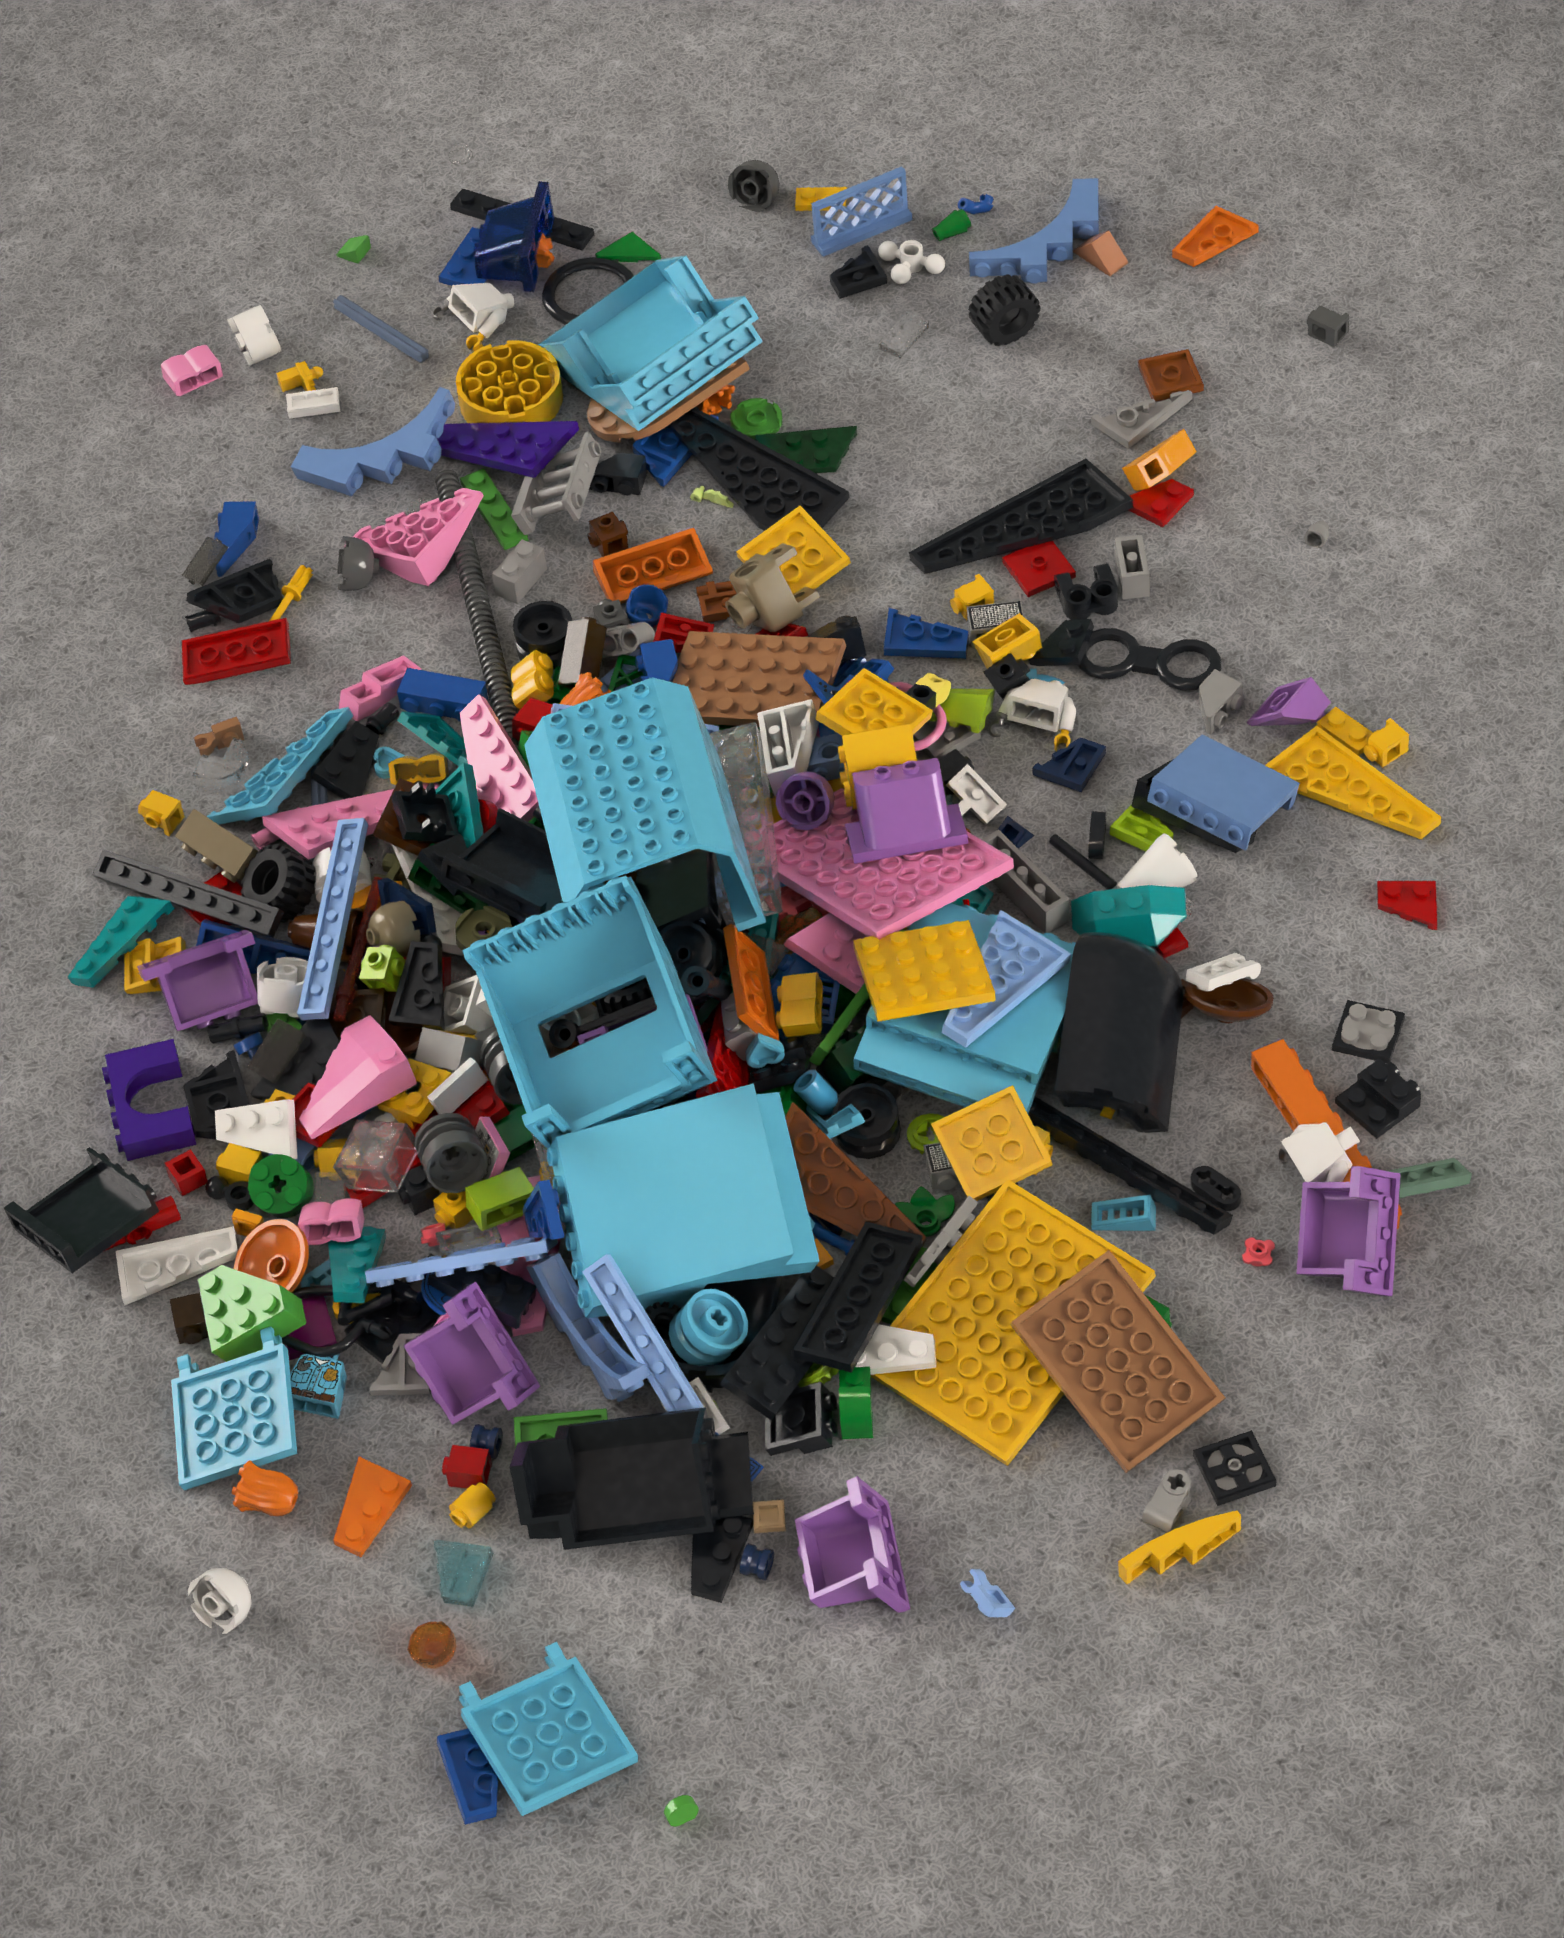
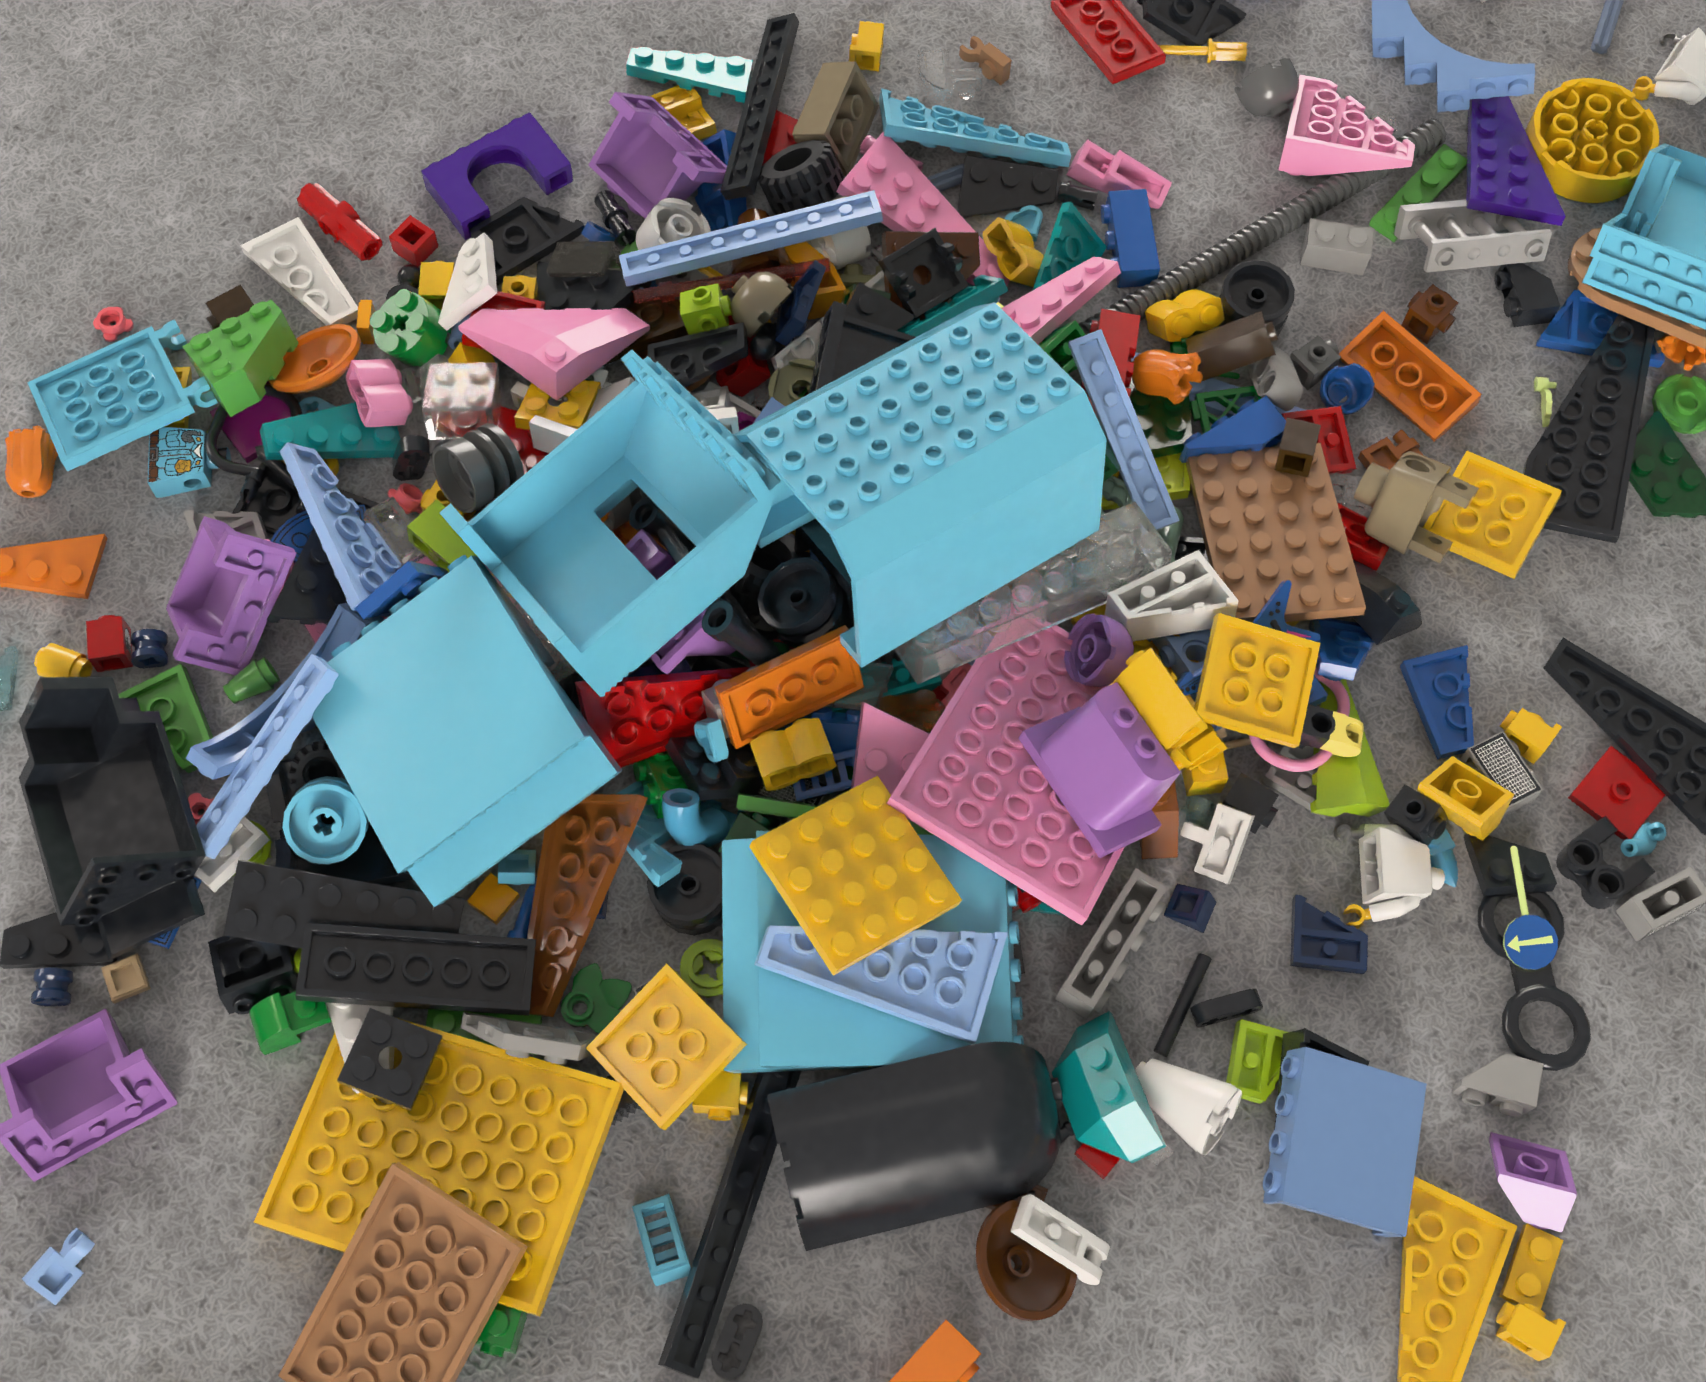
camera: 60 degrees right, 15 degrees up
(85, 1213) = (321, 168): black panel -> none
(145, 1407) = (108, 316): none -> coral plate
(403, 1215) = (411, 457): none -> black beam
(549, 1375) = (252, 680): none -> bright green cone
(694, 638) = (1297, 447): none -> dark brown brick
(925, 1339) = (396, 1085): none -> black piece
(1077, 562) = (1644, 840): none -> medium azure arm
(1121, 647) = (1528, 938): none -> blue piece

